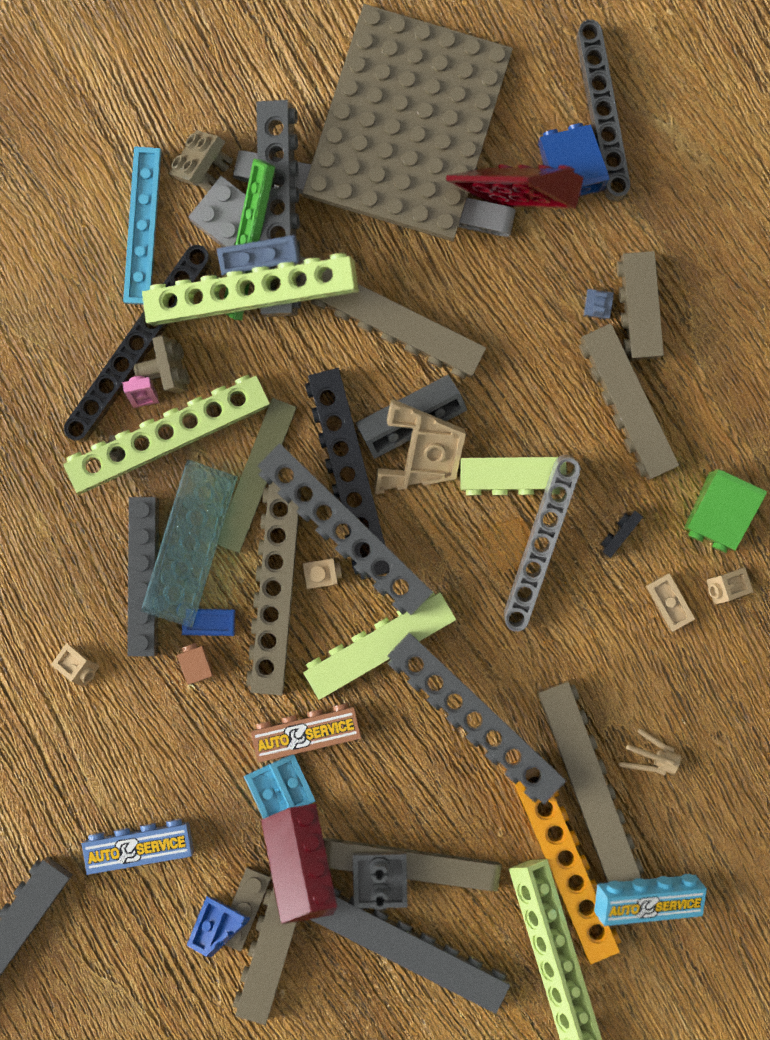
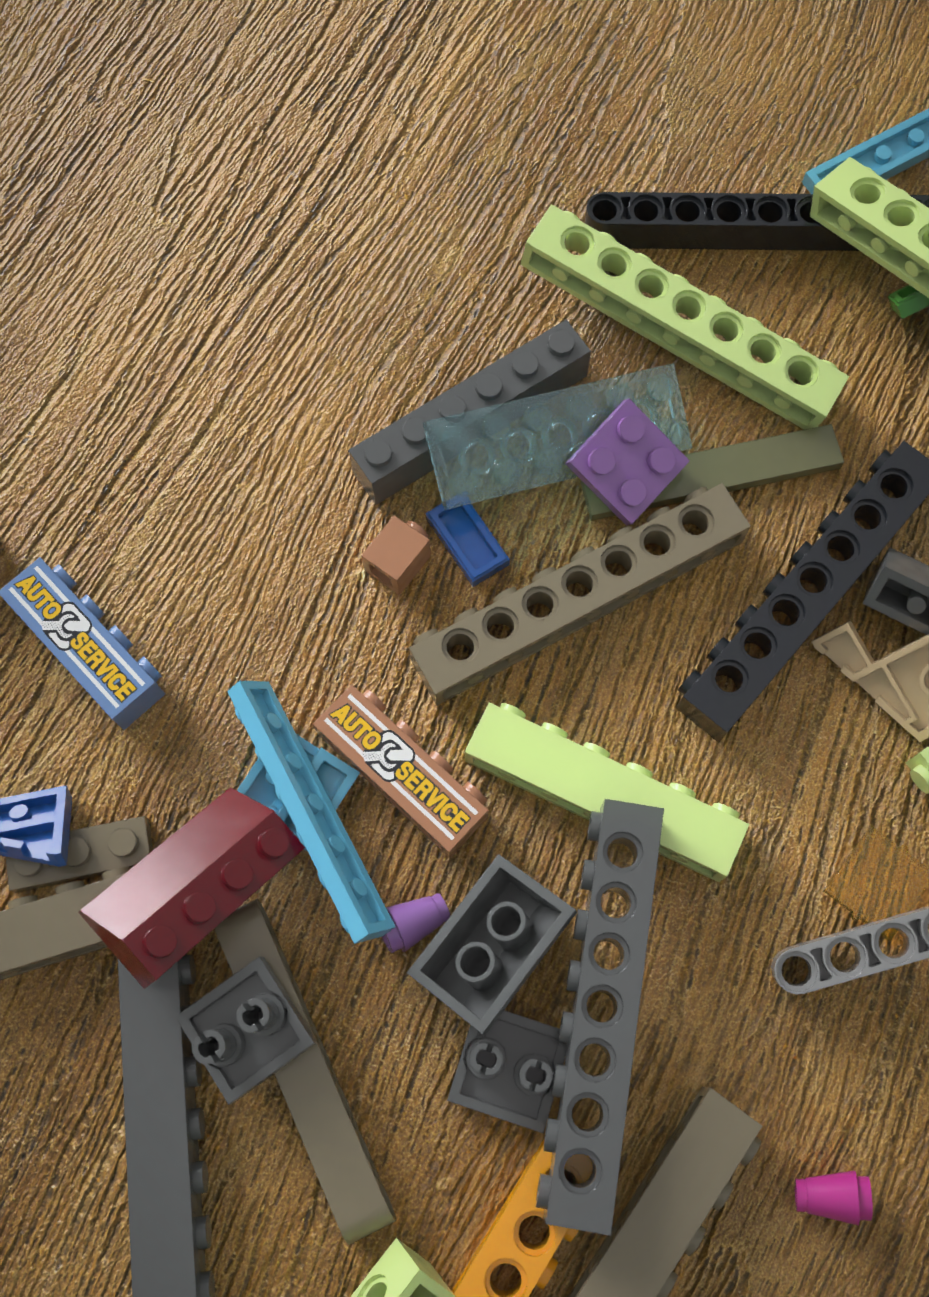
camera: 60 degrees right, 15 degrees down
(75, 665) = (288, 407): tan bracket -> none
(140, 391) = (713, 252): bright pink plate -> none
(166, 365) = (770, 259): dark tan plate -> none
(226, 520) = (627, 462): none -> medium lavender plate
(281, 459) = (767, 470): dark grey brick -> none
(298, 789) = (311, 811): none -> medium azure plate
(322, 573) = (645, 644): tan bracket -> none
(379, 774) = (415, 921): none -> medium lavender cone
(415, 747) = (491, 944): none -> dark grey slope
(470, 773) = (509, 1070): none -> dark grey plate
(617, 668) = (836, 1197): none -> dark pink cone

